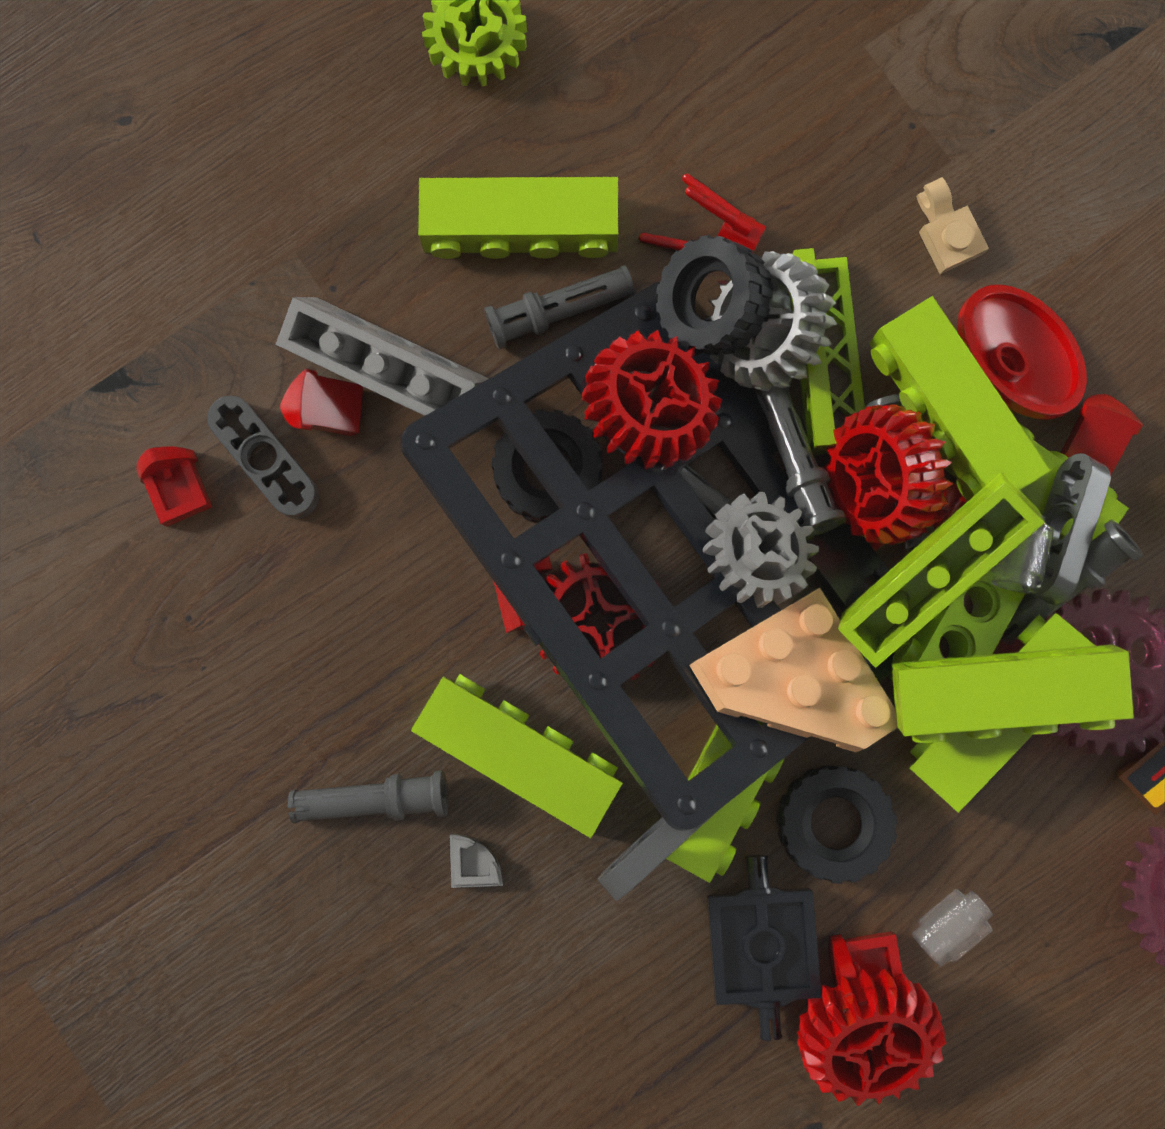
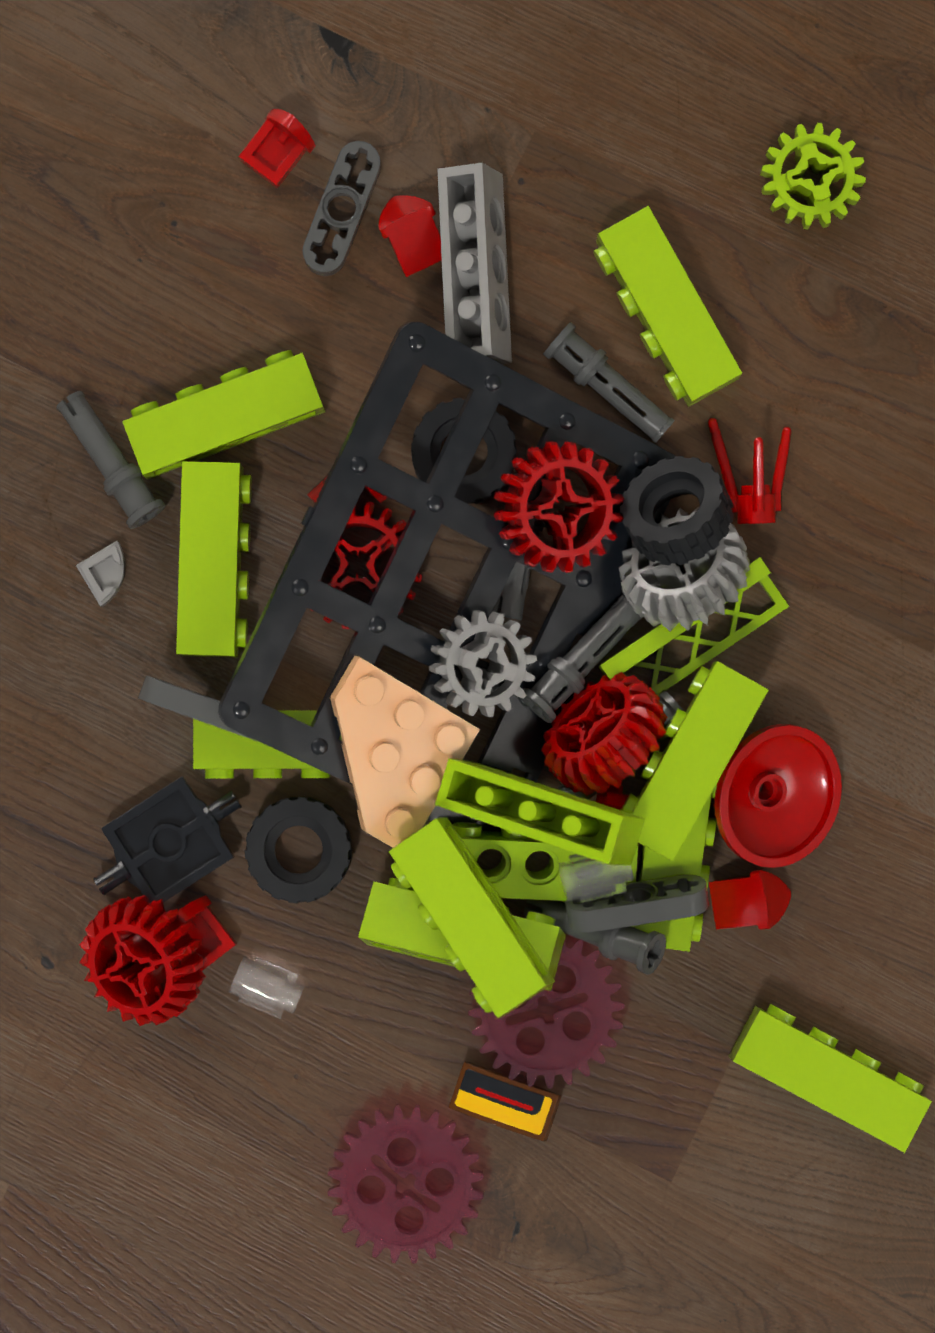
camera: 60 degrees right, 5 degrees up
(389, 668) = (223, 415): none -> lime brick
(951, 235) = (858, 686): tan plate -> none

